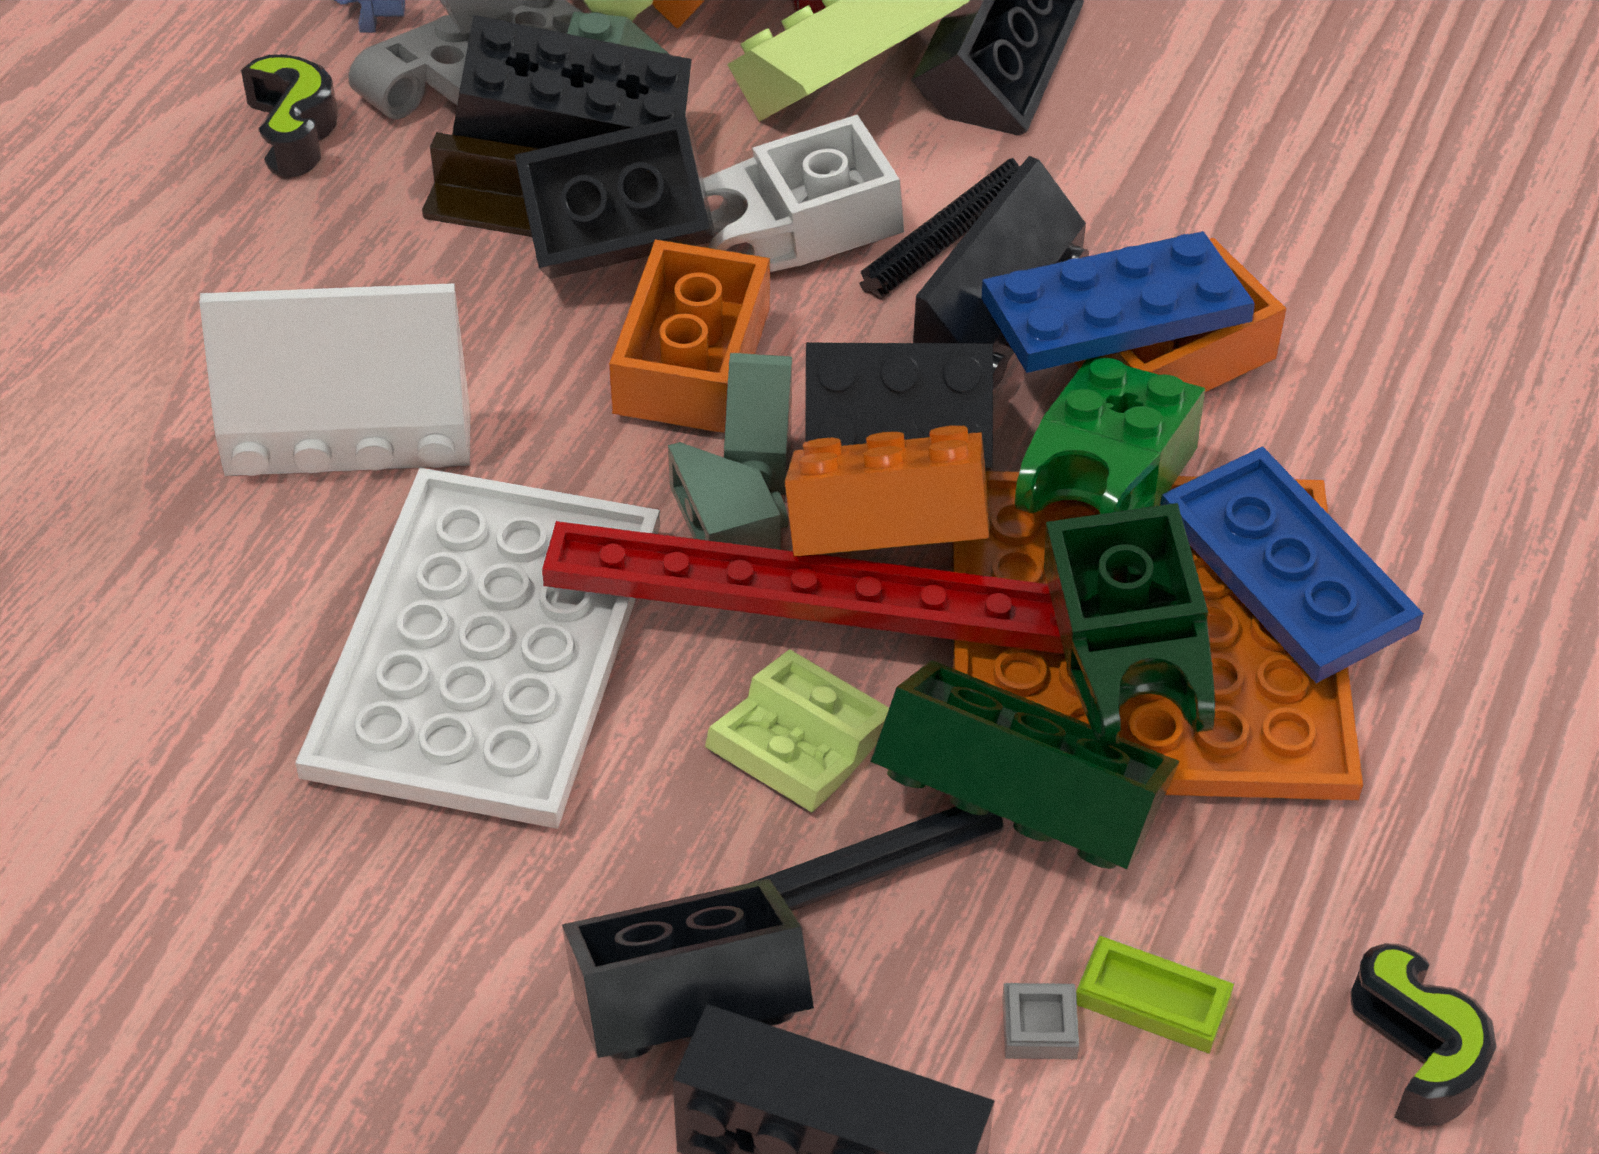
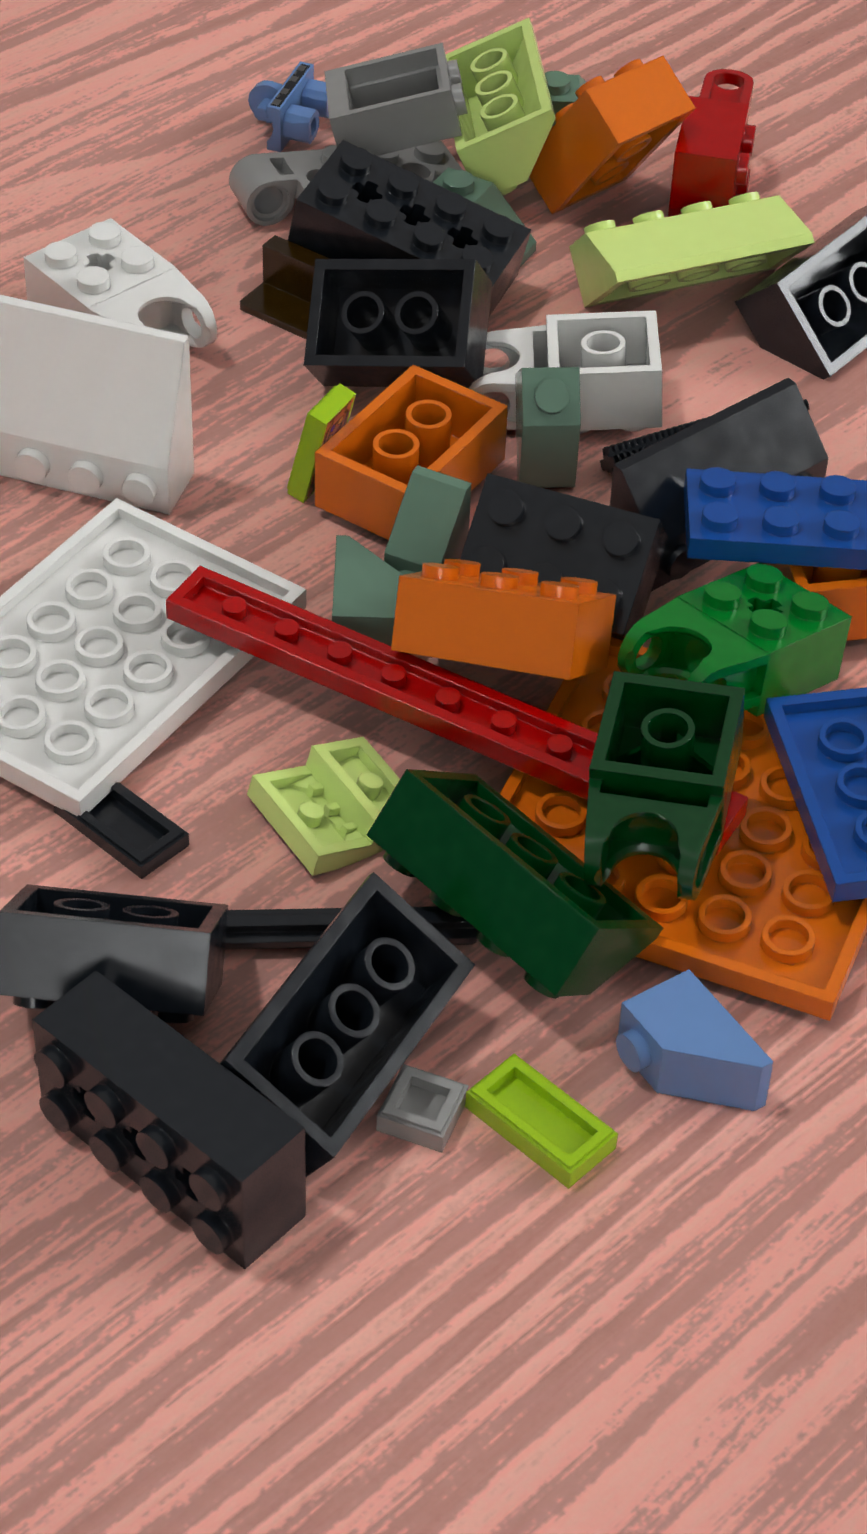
camera: 20 degrees right, 5 degrees down
(298, 106) = (170, 193): black animal -> none
(301, 235) = (118, 278): none -> white brick
(600, 348) = (320, 425): none -> lime tile
(610, 823) = (130, 830): none -> black tile
(811, 265) = (548, 425): none -> sand green slope
(959, 960) = (349, 1016): none -> black slope
(1260, 871) = (692, 1046): none -> medium blue slope
(1430, 1022) = (790, 1229): black animal -> none

